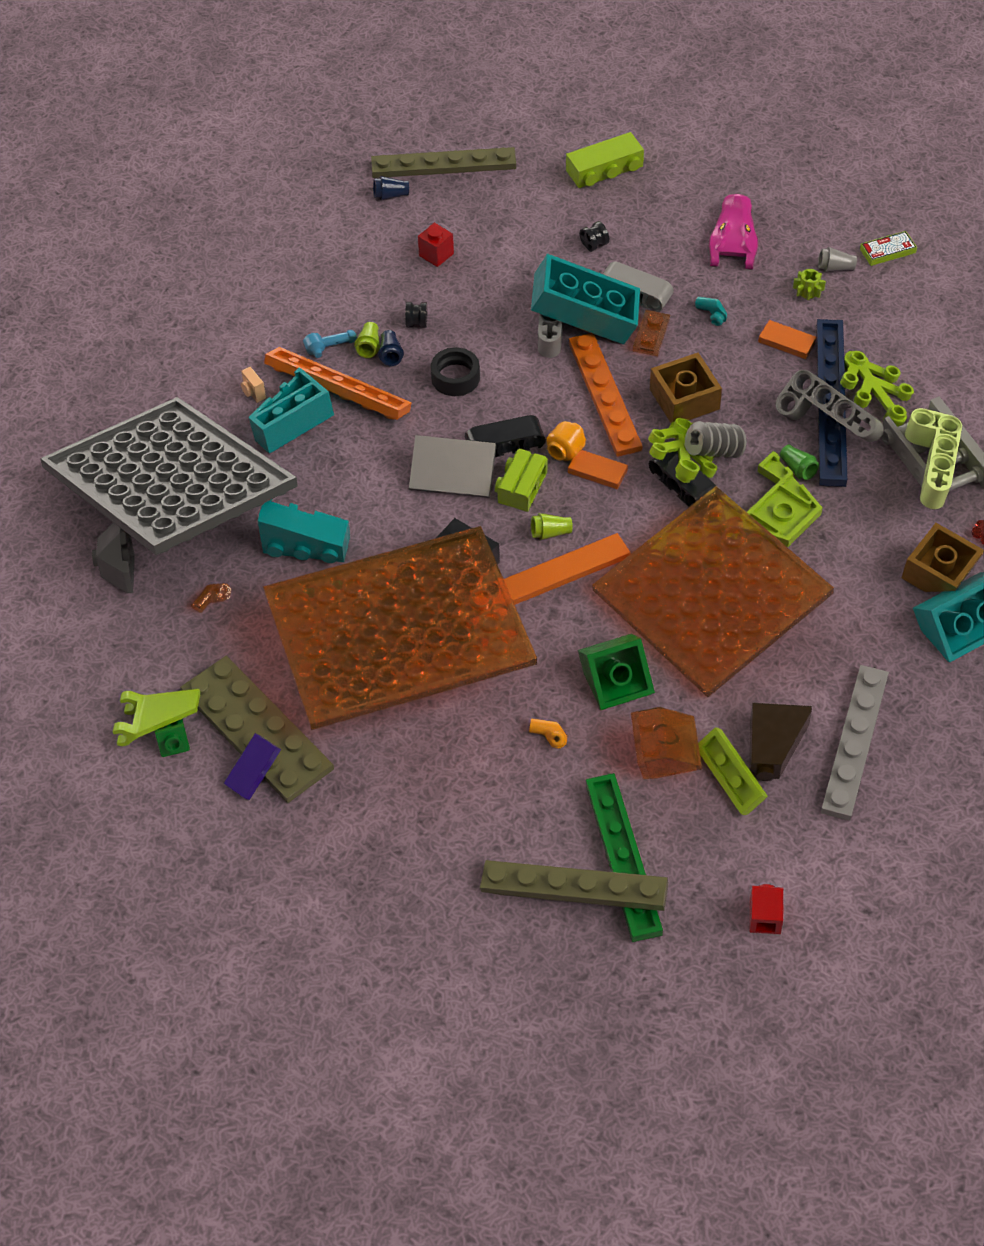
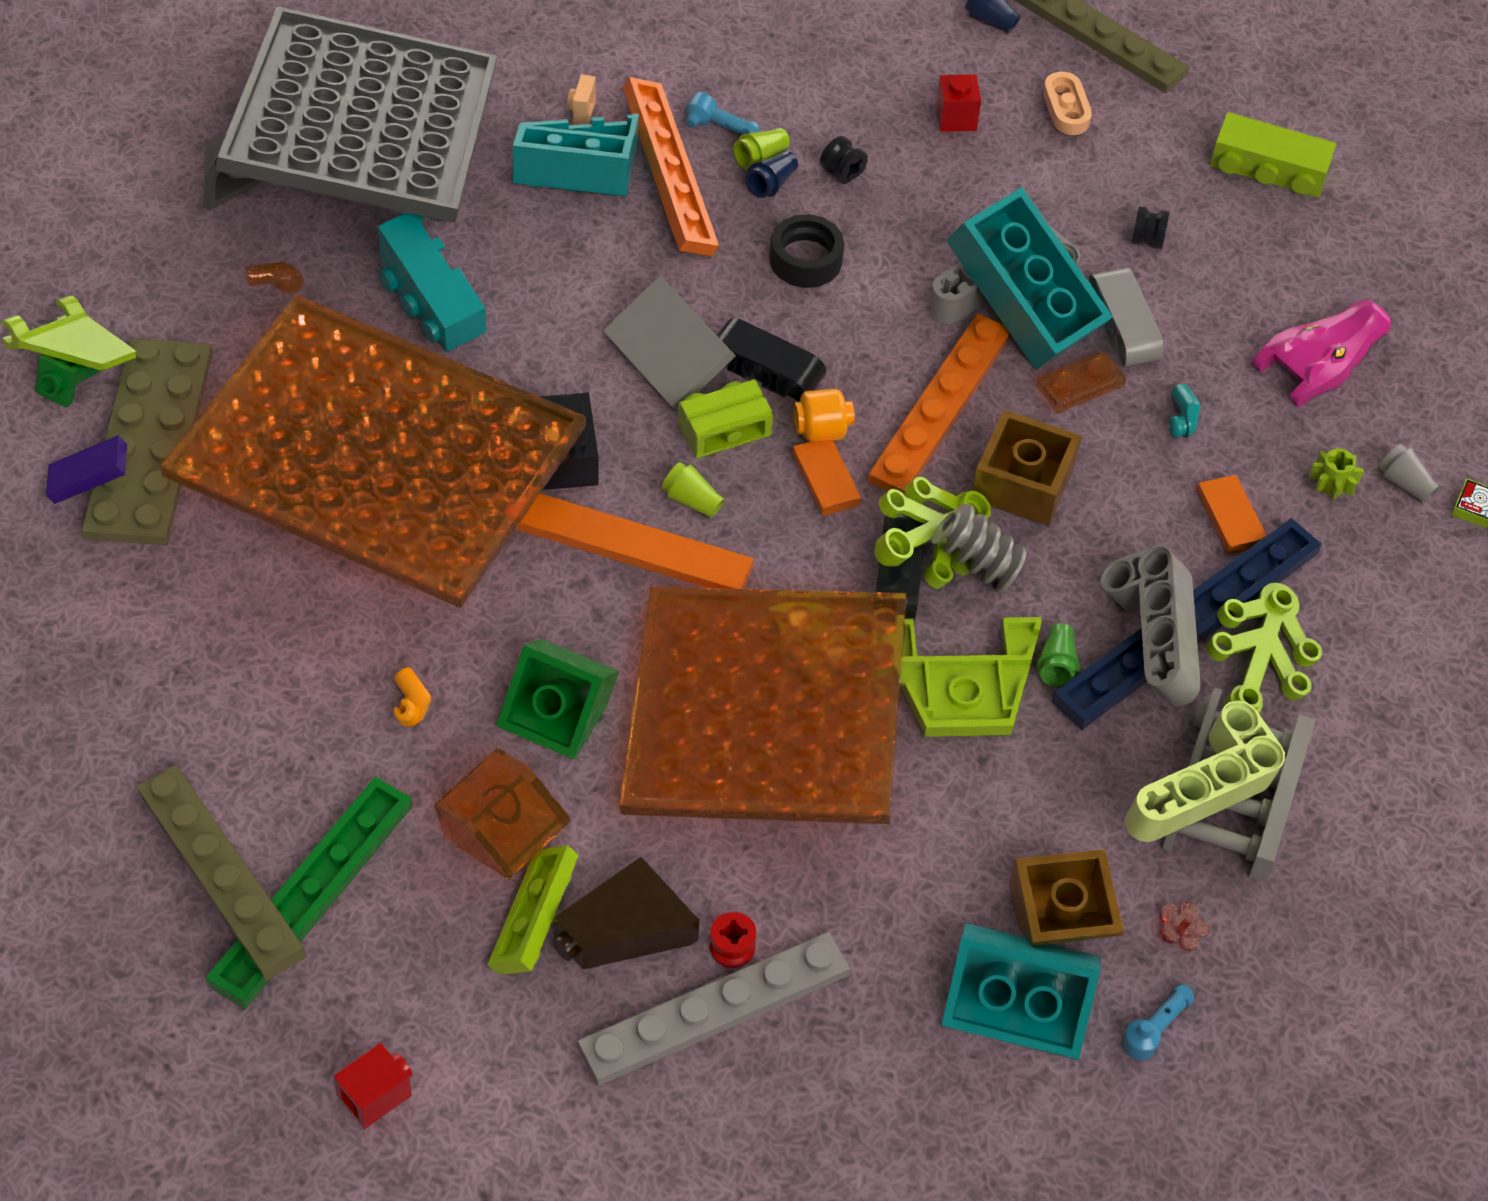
camera: 40 degrees right, 0 degrees up
(485, 207) = (1070, 110): none -> light nougat plate
(829, 712) = (730, 951): none -> red wheel

